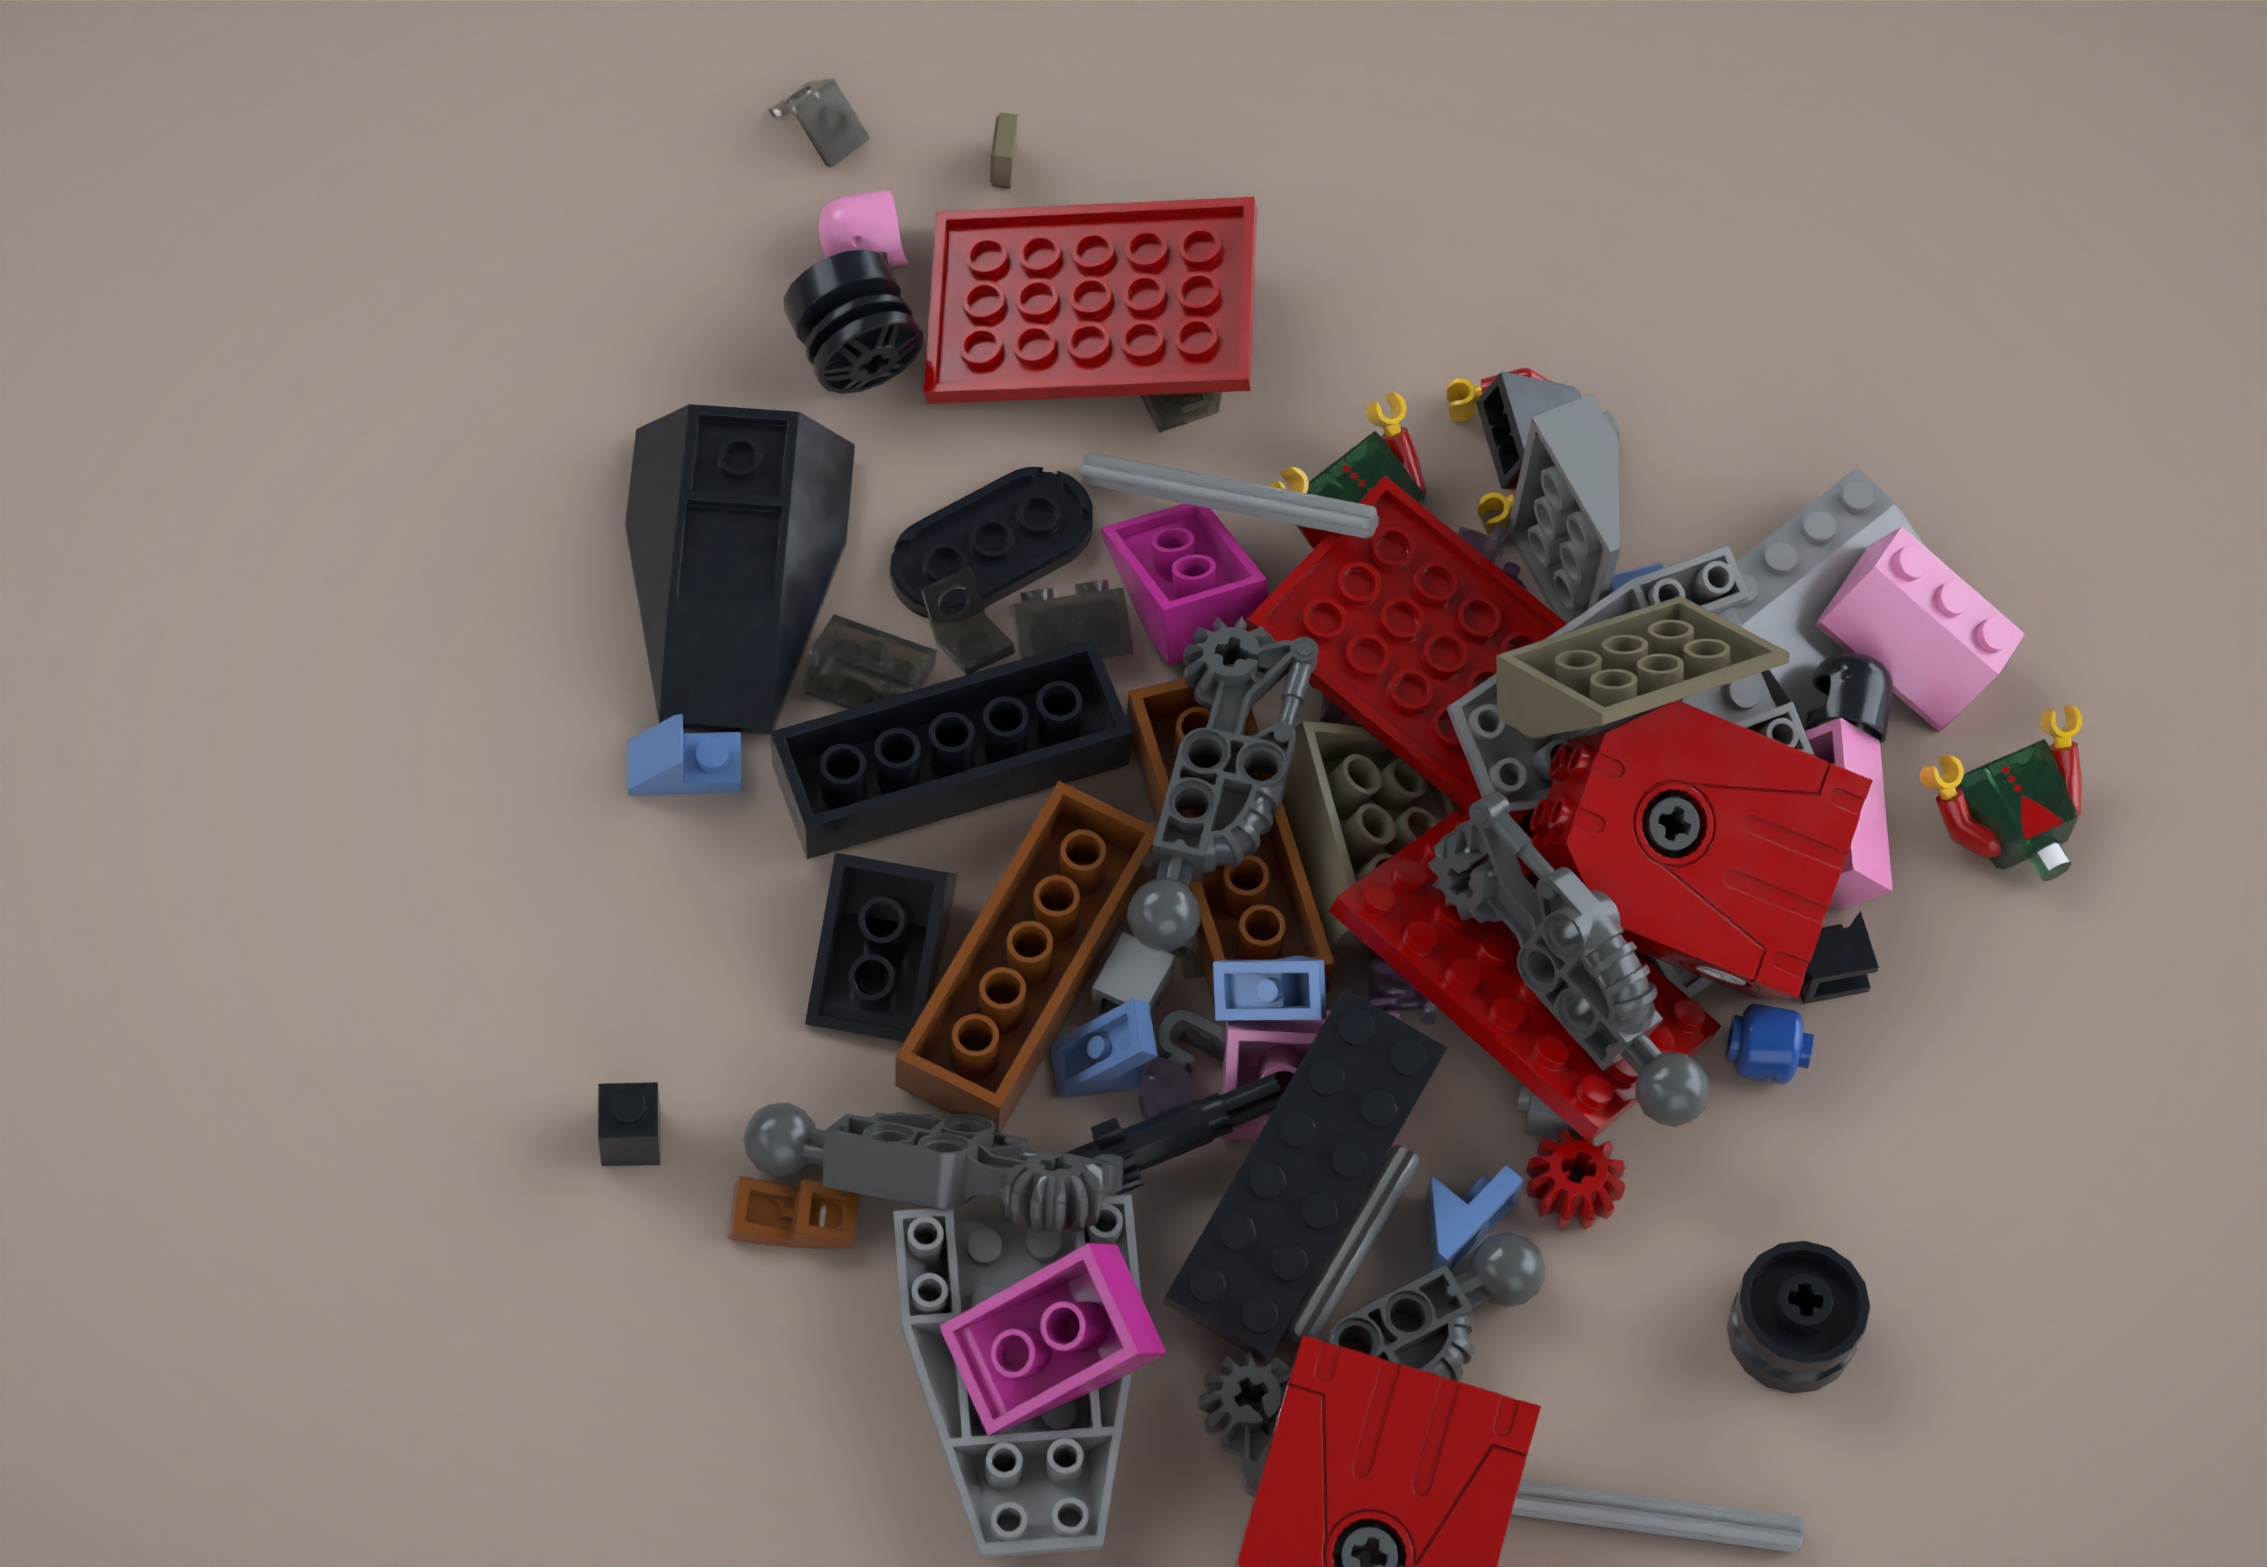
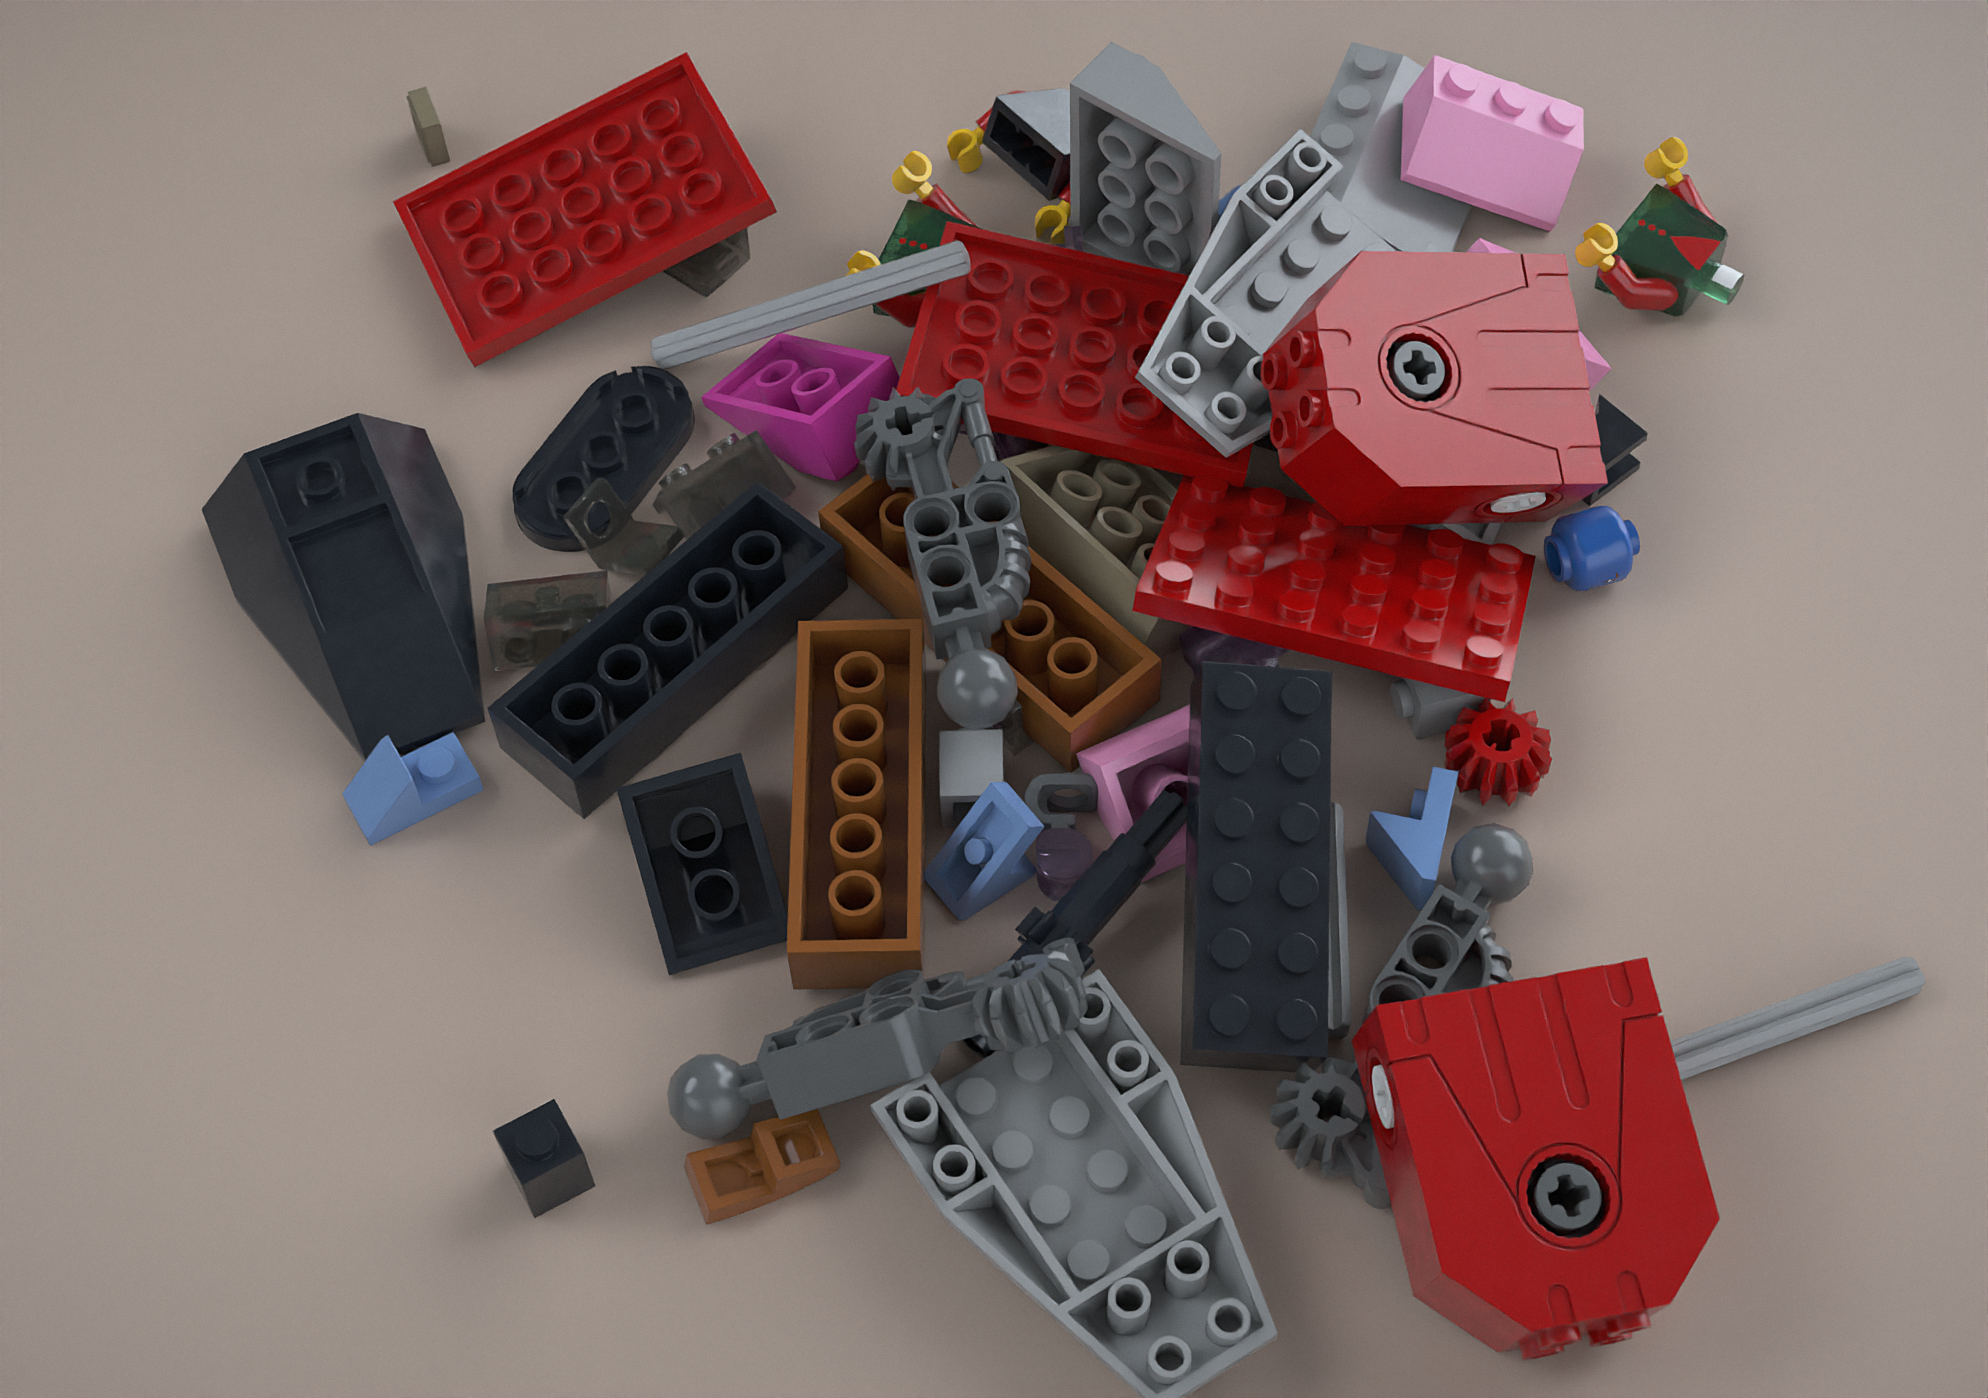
camera: 20 degrees left, 5 degrees down
(825, 119) = (245, 171): clear smoke bracket -> none
(853, 321) = (365, 318): black wheel -> none
(861, 223) = (327, 236): bright pink helmet -> none
(1052, 1337) = (1108, 1148): dark pink slope -> none
(1270, 989) = (1123, 705): medium blue slope -> none
(1568, 954) = (1413, 533): dark grey arm -> none
(1625, 667) = (1287, 256): dark tan slope -> none
(1798, 1316) = (1784, 772): black wheel -> none
(1857, 692) = (1470, 212): black helmet -> none

